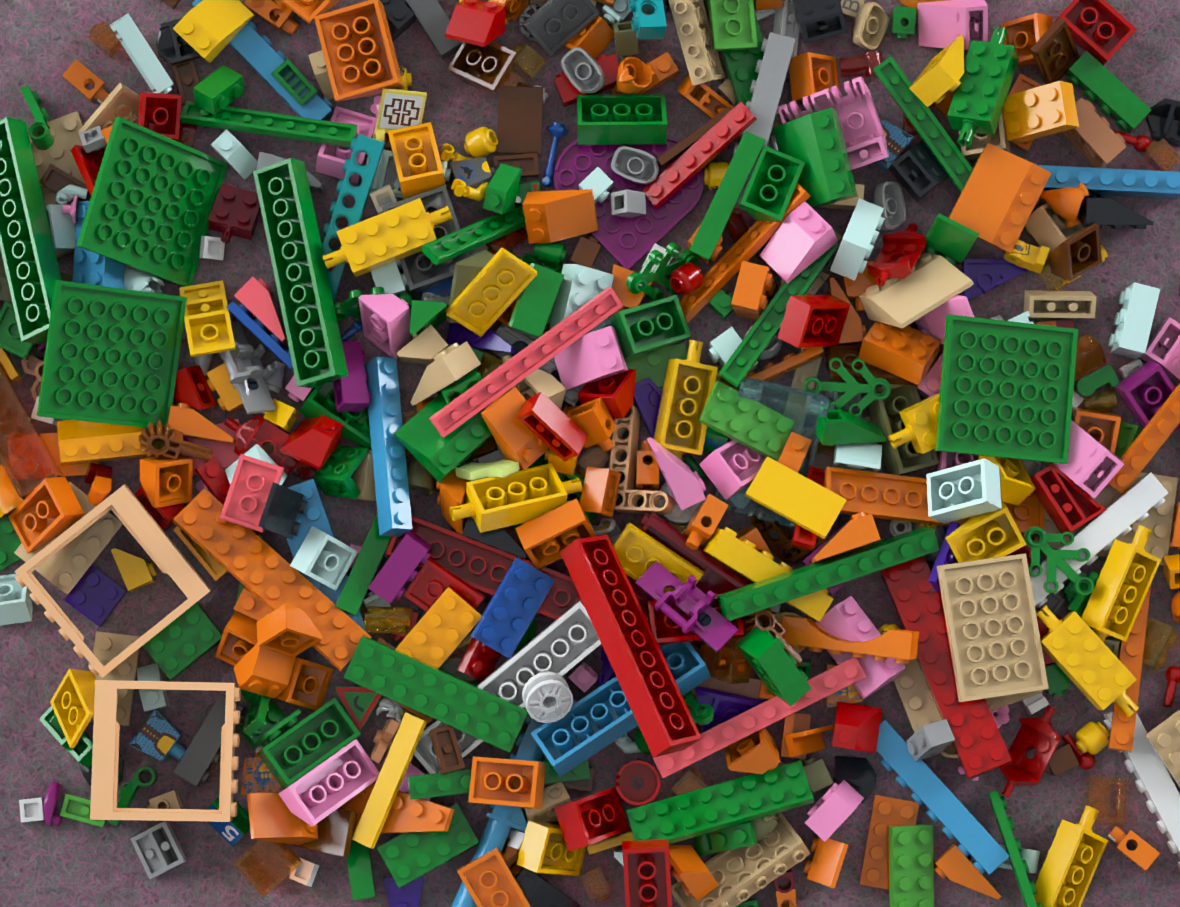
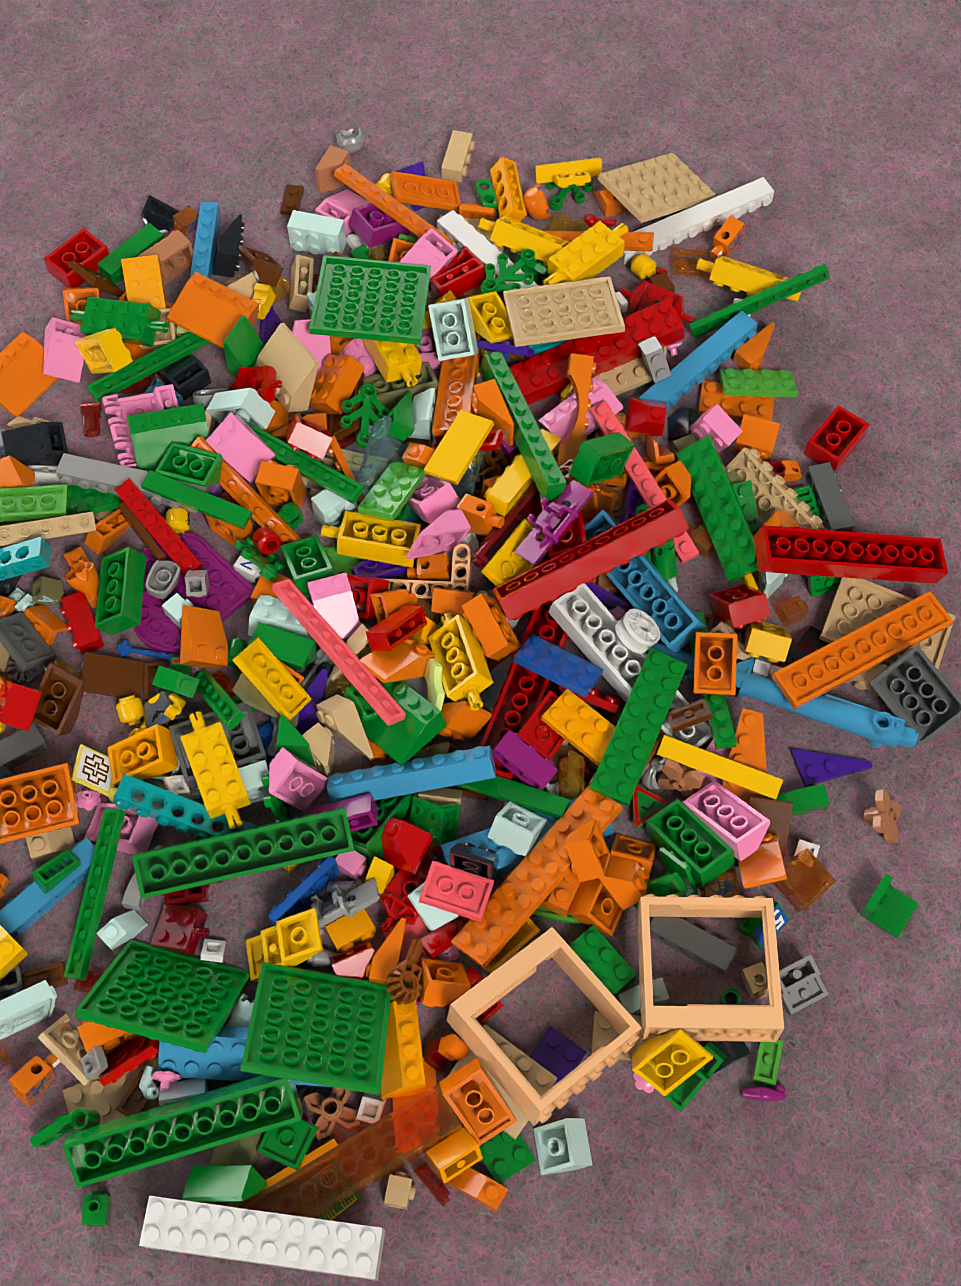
camera: 90 degrees left, 20 degrees down
(32, 809) = (771, 1114): white plate -> none
(134, 570) = (530, 1017): yellow slope -> none
(159, 738) = (692, 986): torso -> none
(160, 113) = (70, 993): red slope -> none
(218, 90) = (56, 942): green brick -> none
(257, 299) = (273, 892): coral slope -> none
(419, 853) = (785, 751): green brick -> none
(583, 71) = (72, 615): light grey piece -> none
(586, 252) = (237, 623): reddish brown brick -> none
(651, 782) = (703, 568): red piece -> none
(812, 74) = (99, 449): orange slope -> none
(870, 26) = (58, 411): tan piece -> none
(903, 21) = (57, 388): green brick -> none
(1066, 202) = (220, 269): orange hat -> none

